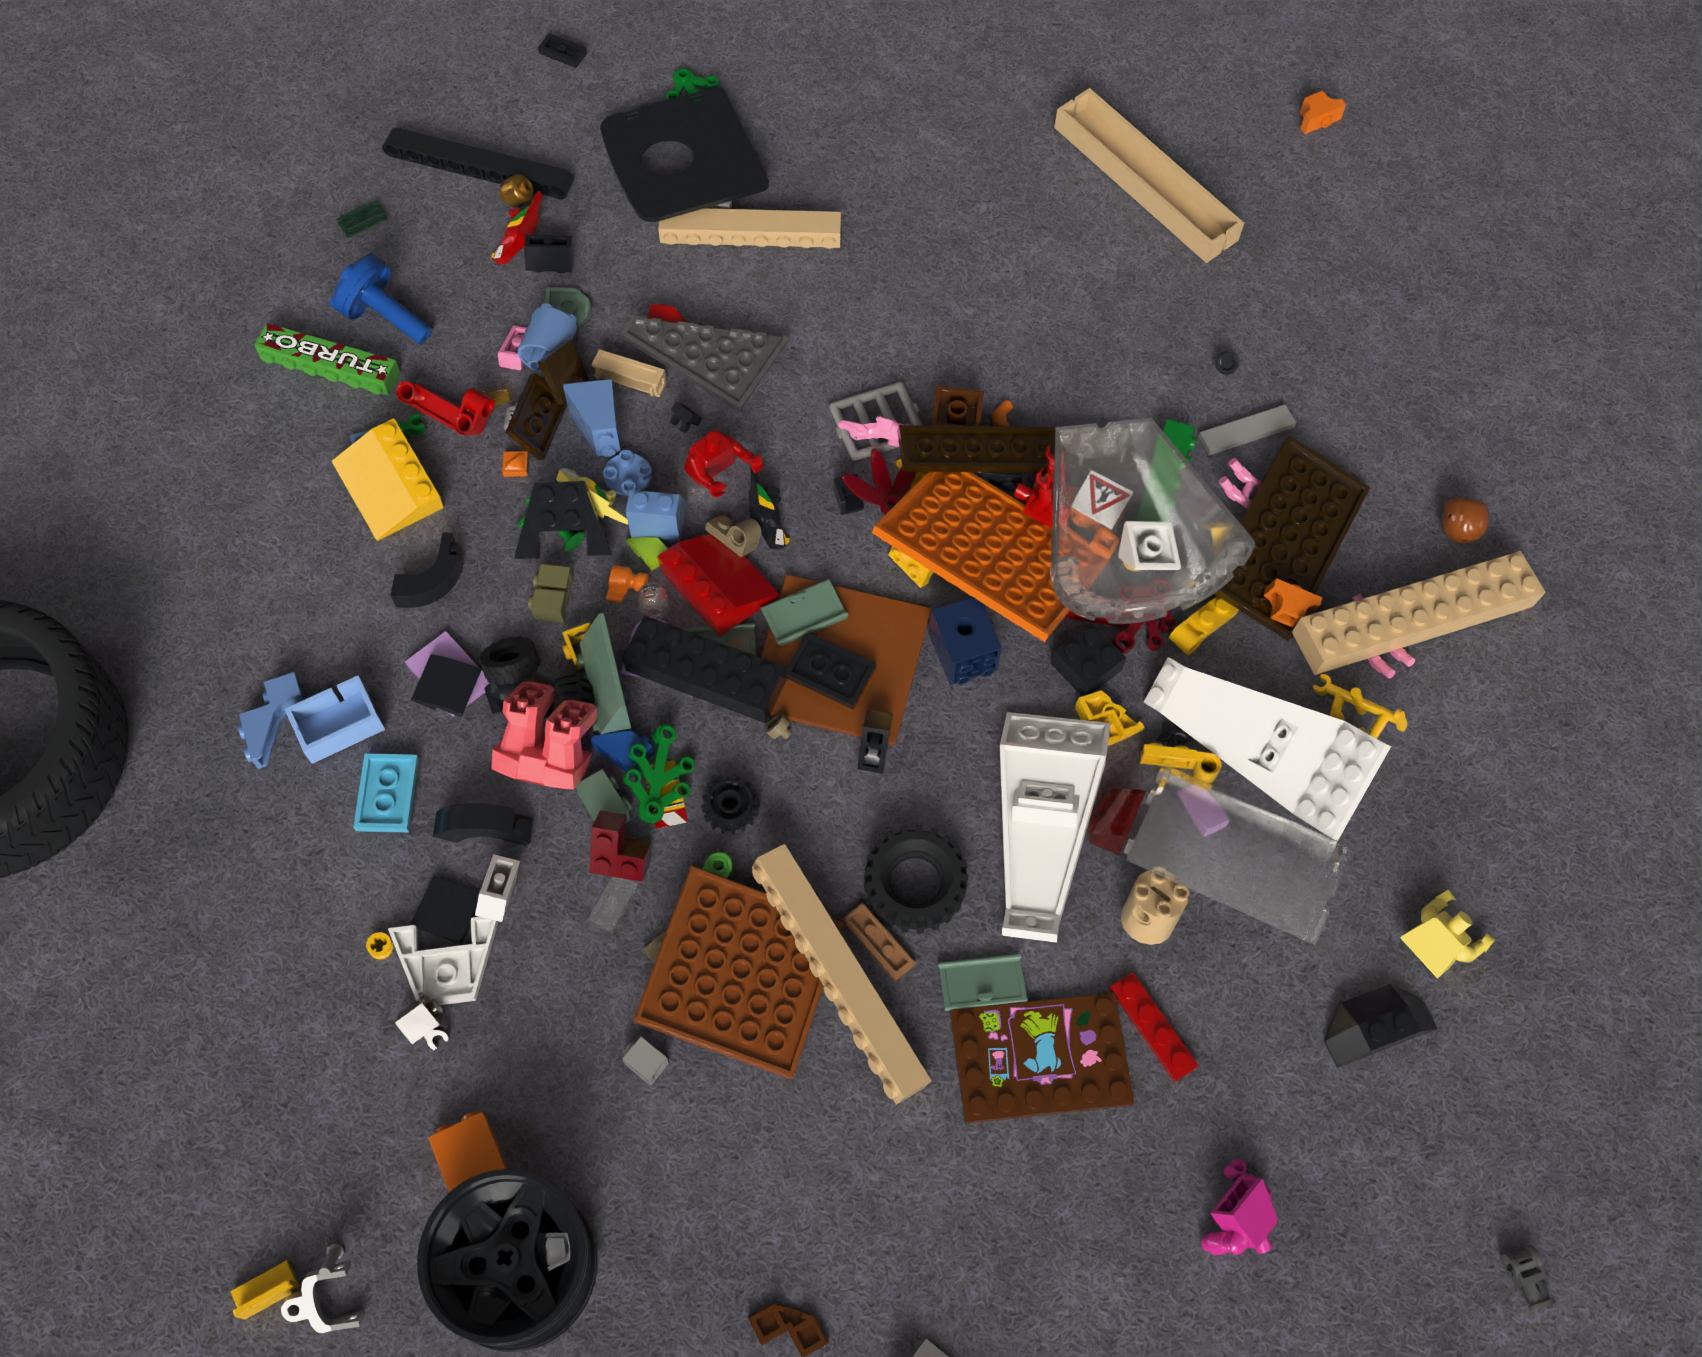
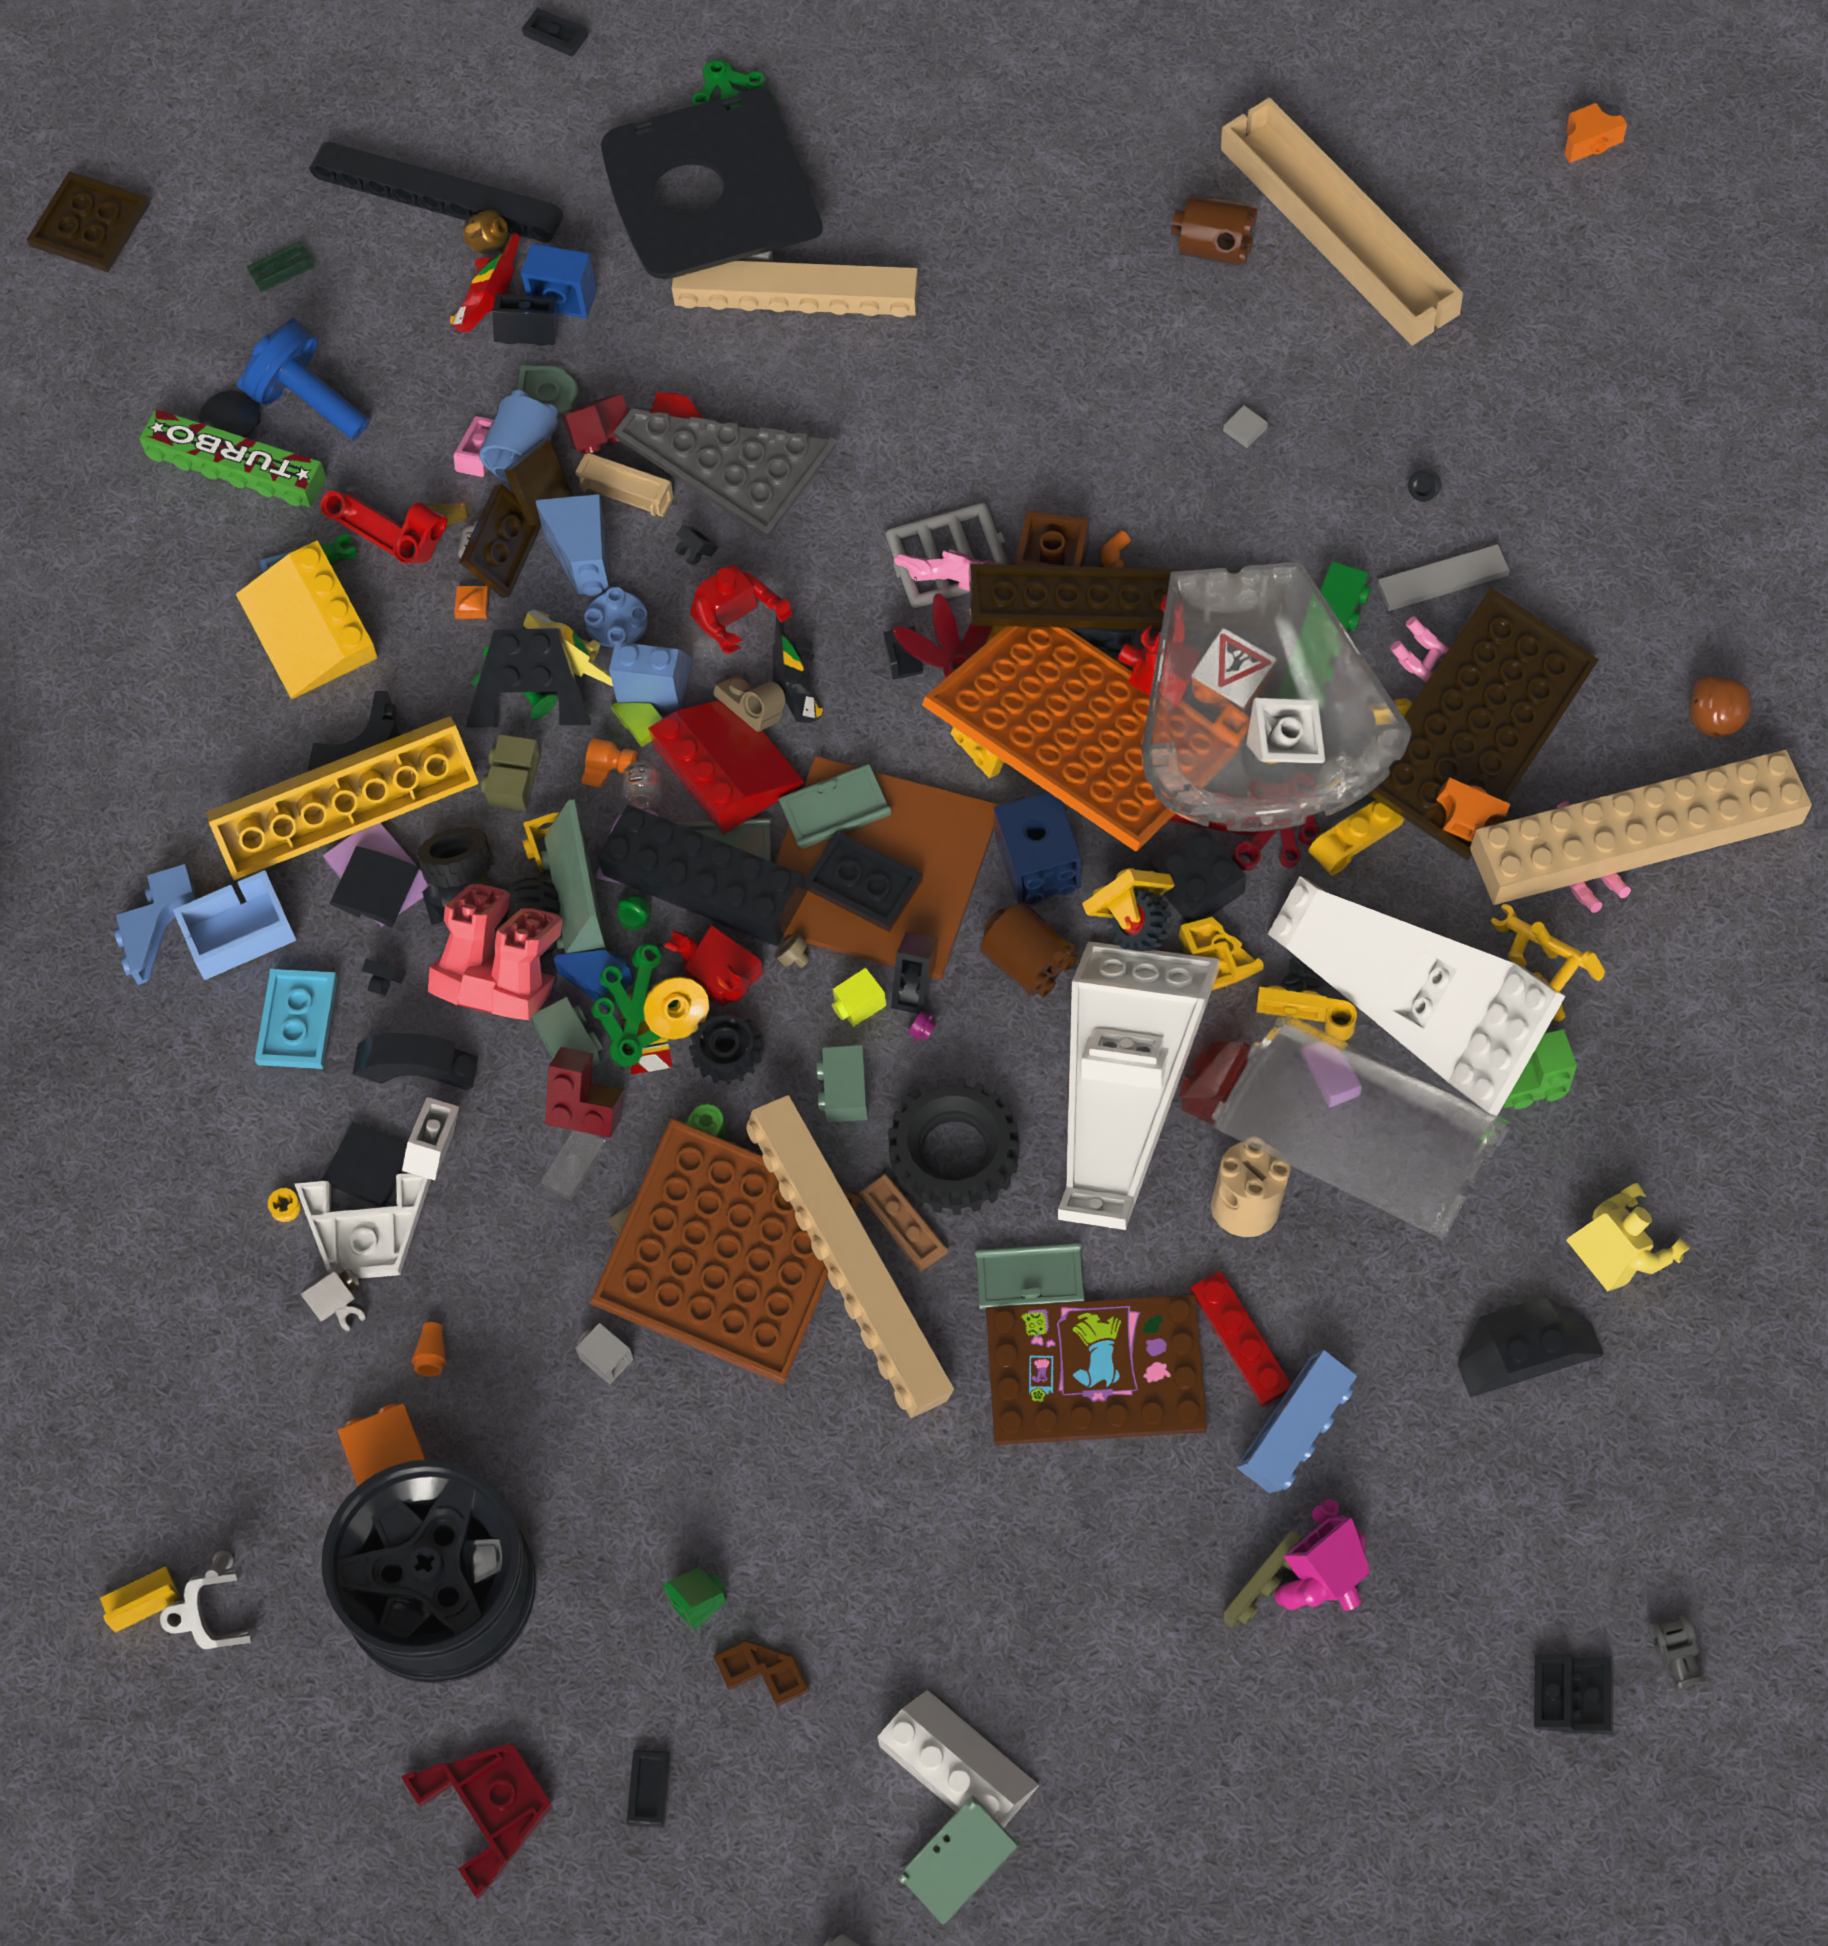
camera: 10 degrees right, 0 degrees up
(214, 188) = (88, 221): none -> dark brown plate
(326, 325) = (231, 412): none -> black dish
(417, 616) = (341, 798): none -> yellow brick
(454, 756) = (381, 976): none -> black tile
(502, 1066) = (430, 1352): none -> orange cone
(574, 219) = (561, 275): none -> blue brick
(604, 327) = (594, 422): none -> dark red brick
(651, 700) = (633, 913): none -> green tile
(696, 781) = (681, 1019): none -> yellow dish
(719, 742) = (717, 964): none -> red torso
(731, 1267) = (695, 1596): none -> green slope
(826, 831) = (844, 1083): none -> sand green piece
(832, 762) = (858, 998): none -> neon yellow brick
(883, 783) = (922, 1026): none -> magenta plate
(961, 719) = (1027, 948): none -> reddish brown cylinder
(1044, 686) = (1134, 908): none -> plate
(1051, 178) = (1215, 229): none -> reddish brown cylinder
(1090, 323) = (1245, 426): none -> light grey tile
(1192, 1233) = (1263, 1582): none -> olive tile
(1206, 1096) = (1297, 1422): none -> medium blue brick
(1375, 804) = (1546, 1073): none -> bright green brick
(1449, 1316) = (1573, 1694): none -> black slope

